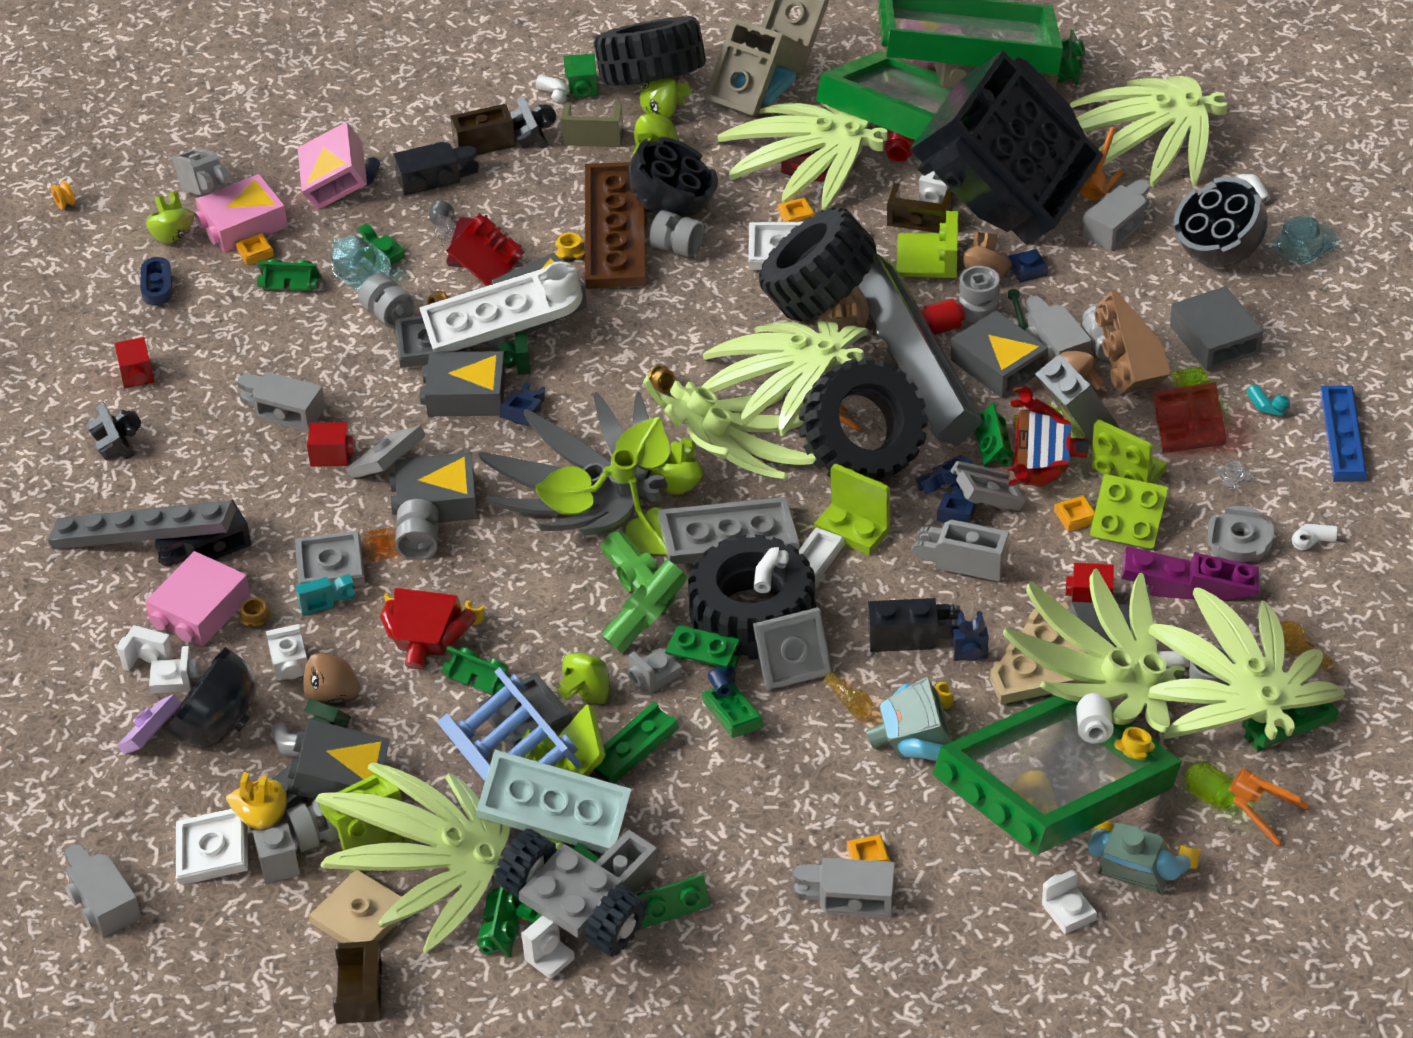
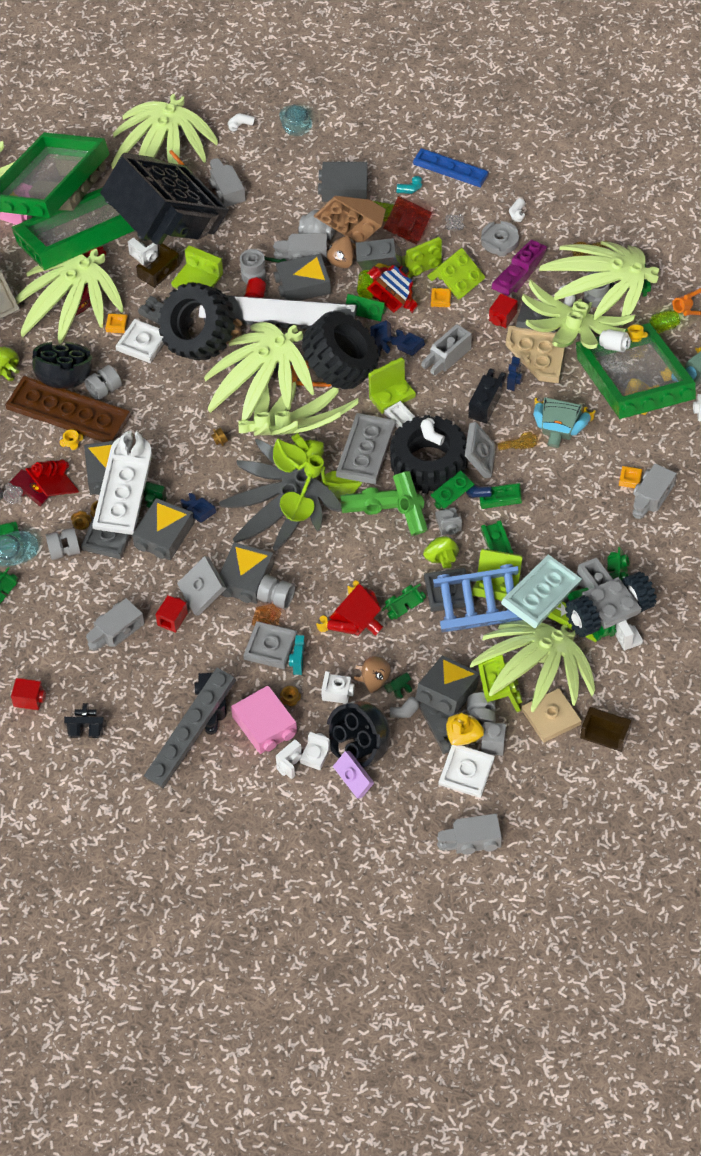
camera: 65 degrees left, 10 degrees up
(501, 932) = (601, 654): green hinge -> none
(984, 254) = (228, 252): medium nougat piece -> none
(987, 486) = (407, 323): light grey plate -> none
(1028, 265) = (235, 239): dark blue plate -> none
(1221, 222) = (273, 130): black cylinder -> none

